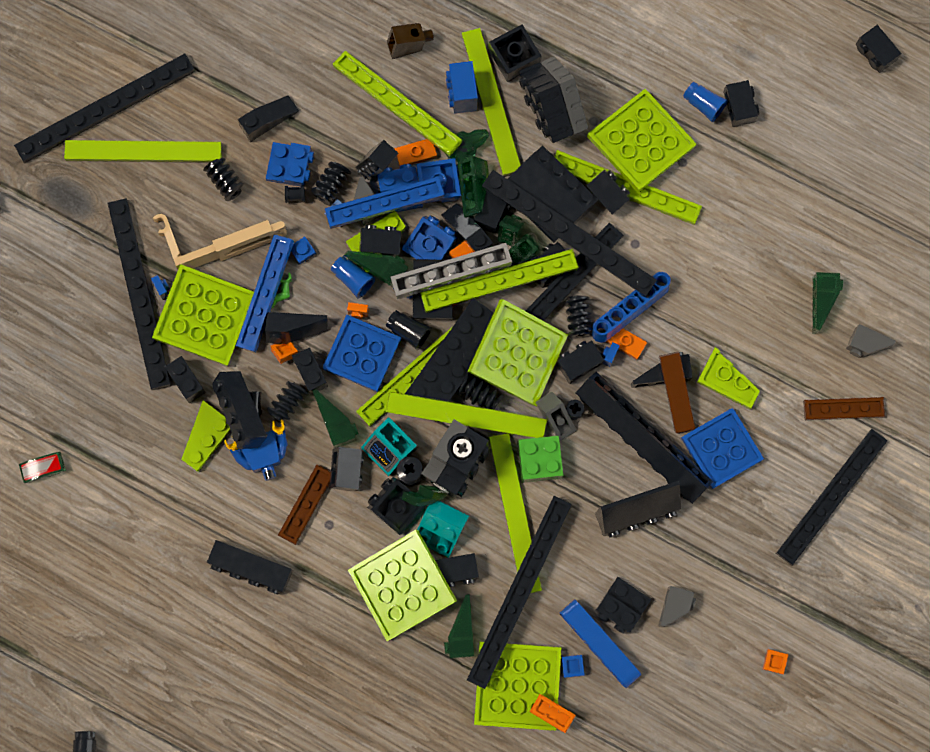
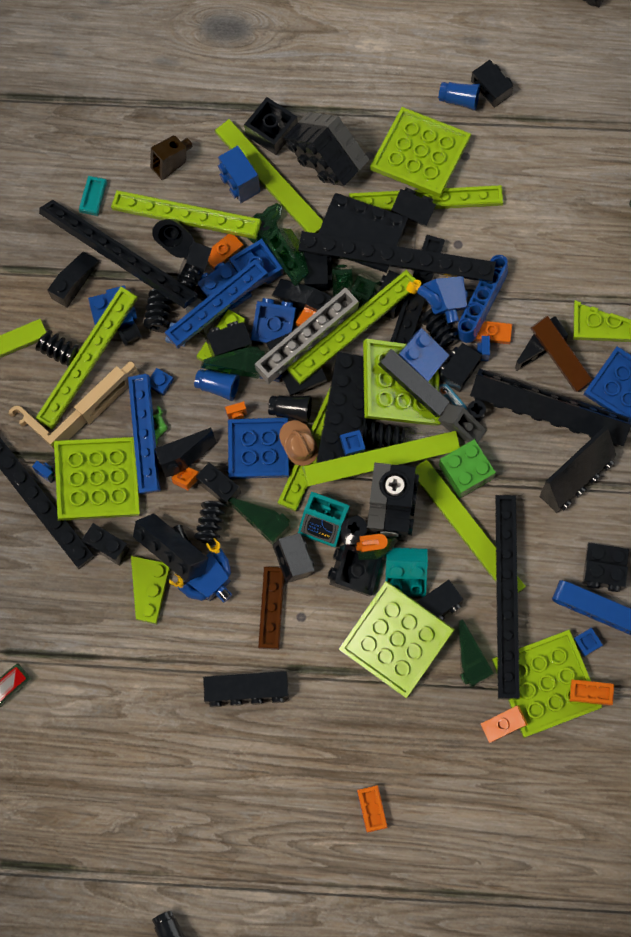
camera: 15 degrees left, 5 degrees down
(245, 199) = (86, 358): none -> lime tile
(310, 725) = (372, 809): none -> orange plate
(317, 114) = (118, 254): none -> black plate
(321, 45) = (92, 196): none -> teal tile
(375, 119) = (172, 237): none -> black piece
(399, 365) = (298, 443): none -> medium nougat piece
(419, 490) = (372, 542): none -> orange piece
(445, 389) = (352, 443): none -> blue plate
(462, 704) = (504, 724): none -> orange plate
(528, 358) = (413, 382): none -> black tile
(549, 336) = (423, 354): none -> blue plate
(557, 377) = (447, 392): none -> sticker
(593, 289) = (443, 295): none -> blue torso

